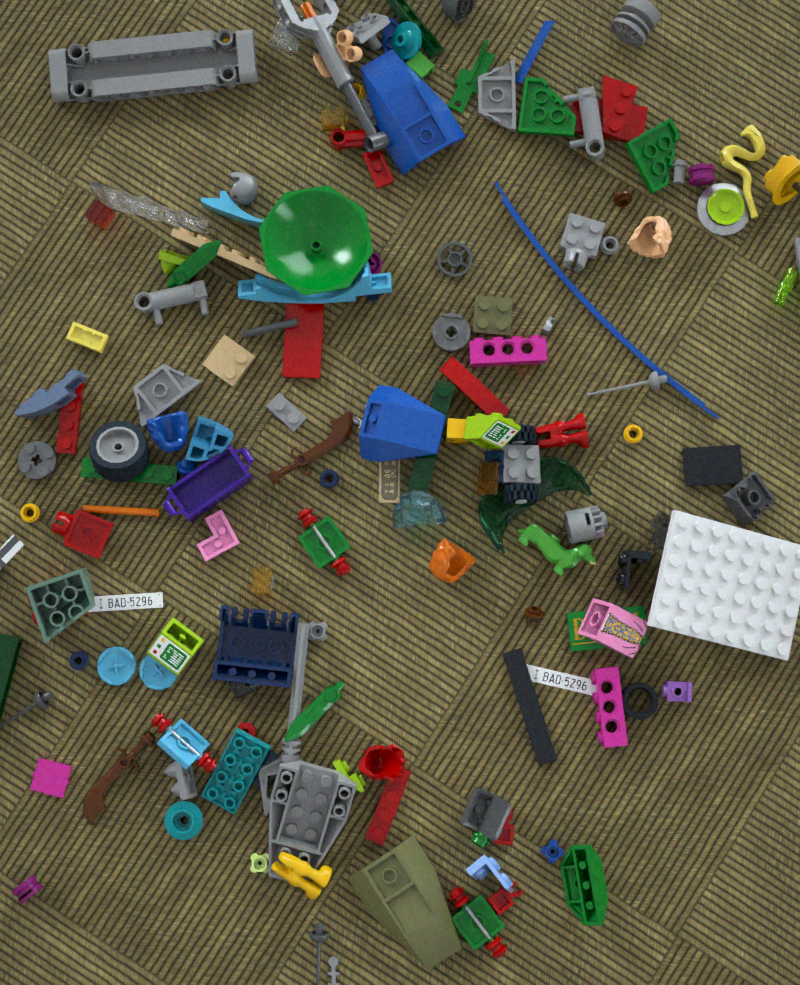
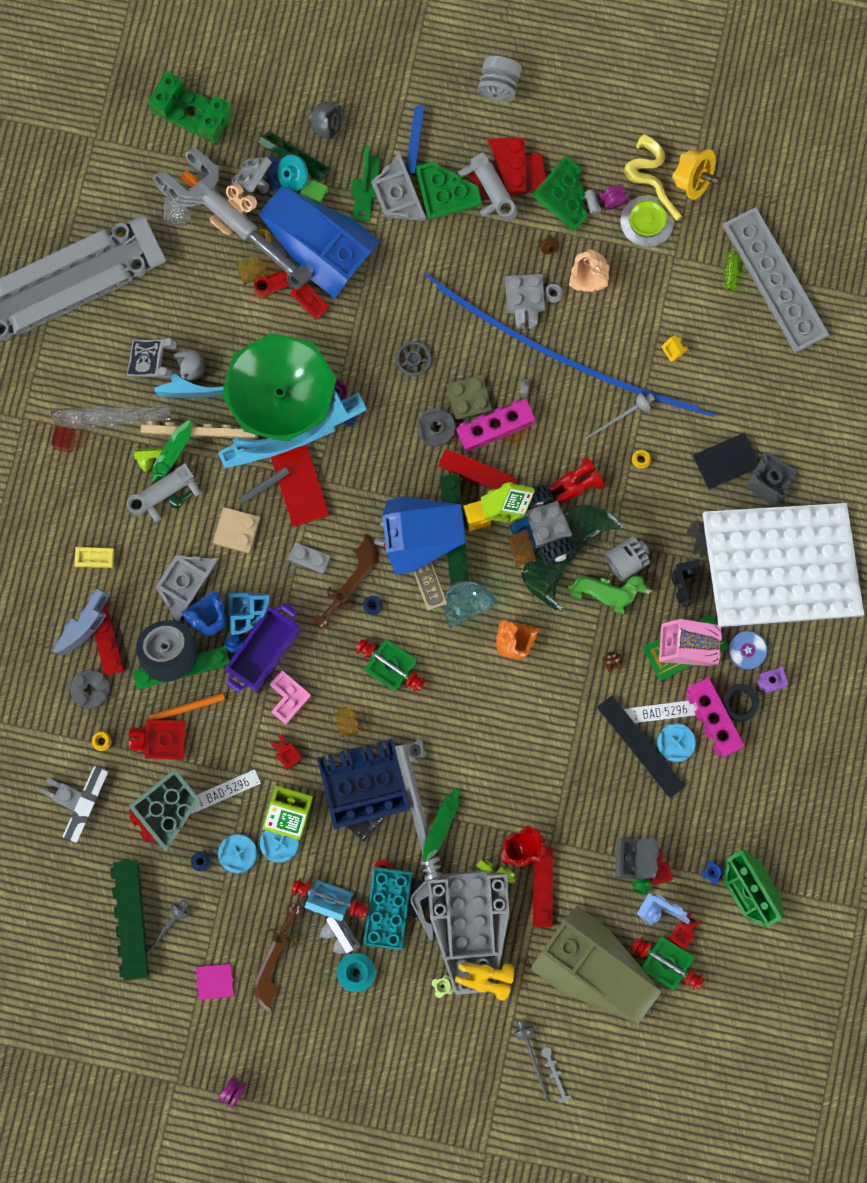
camera: 15 degrees left, 5 degrees down
(184, 314) = (176, 502): none -> dark green hand
(197, 590) = (287, 754): none -> red plate
(206, 166) = (147, 358): none -> flag
(564, 715) = (676, 742): none -> medium azure tile
(664, 653) = (747, 650): none -> medium blue tile
(703, 340) = (674, 348): none -> yellow tile

